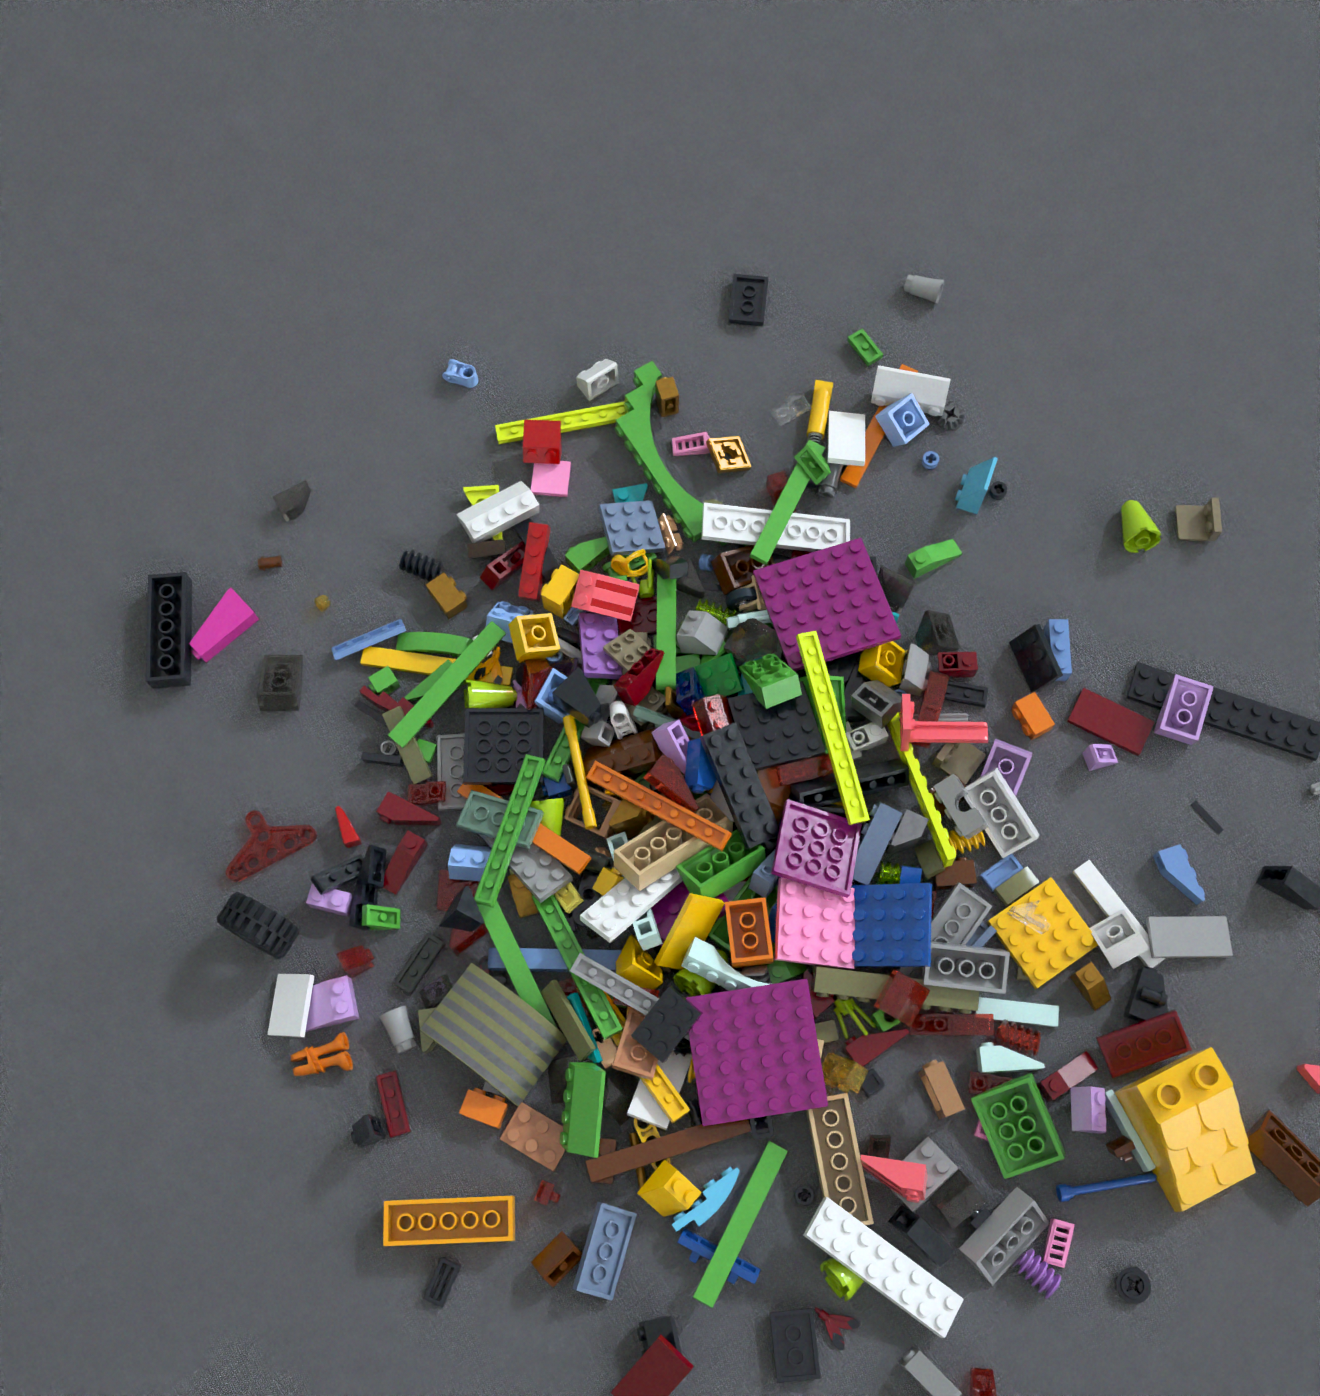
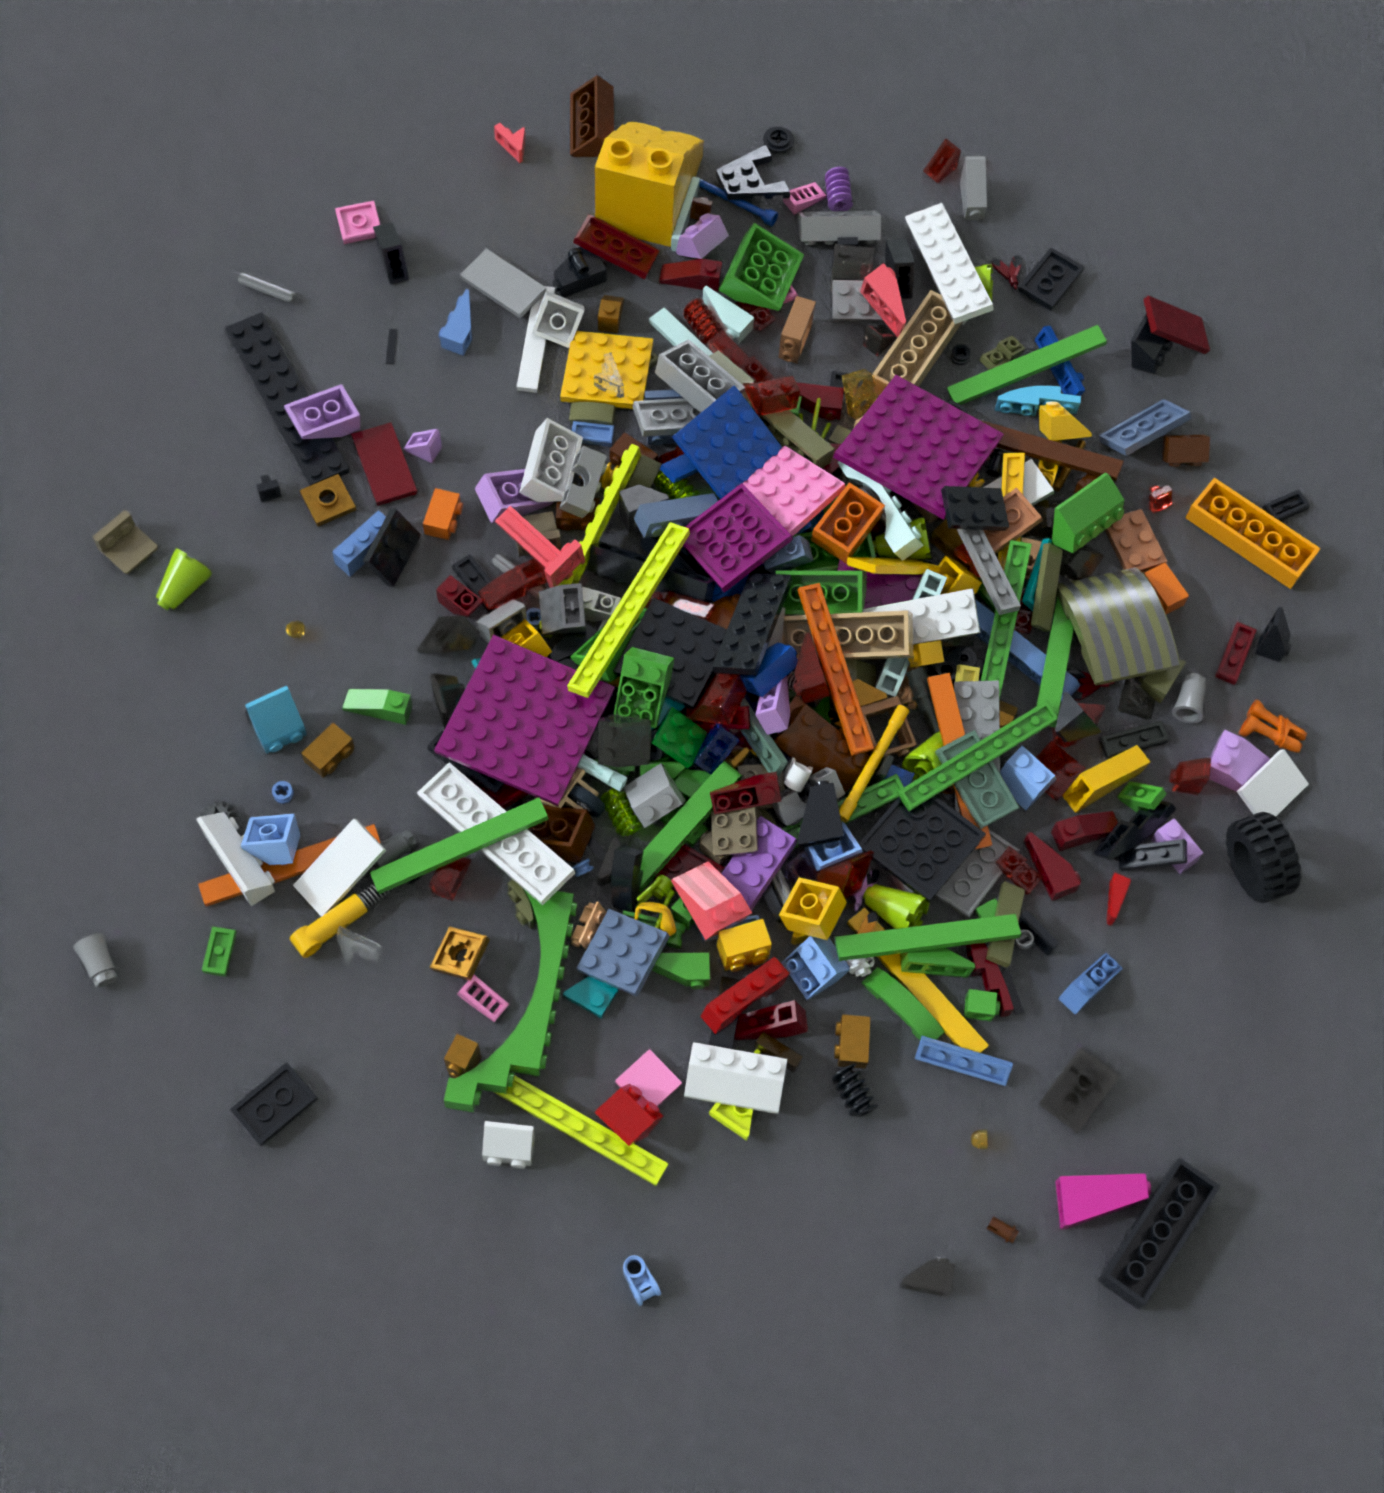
camera: 145 degrees left, 5 degrees down
(276, 839) = (1186, 944): clear red beam -> none
(322, 756) = (1090, 983): none -> medium blue slope
(414, 911) = (1105, 778): none -> yellow slope
(772, 1227) = (1004, 352): none -> olive slope
(813, 464) = (401, 856): bright green slope -> none
(930, 503) = (328, 750): none -> pearl gold brick
(1034, 562) = (295, 629): none -> clear yellow hinge
(1105, 670) = (327, 512): none -> pearl gold piece
(1121, 1209) = (742, 181): none -> wing
(1160, 634) = (268, 489): none -> black tile

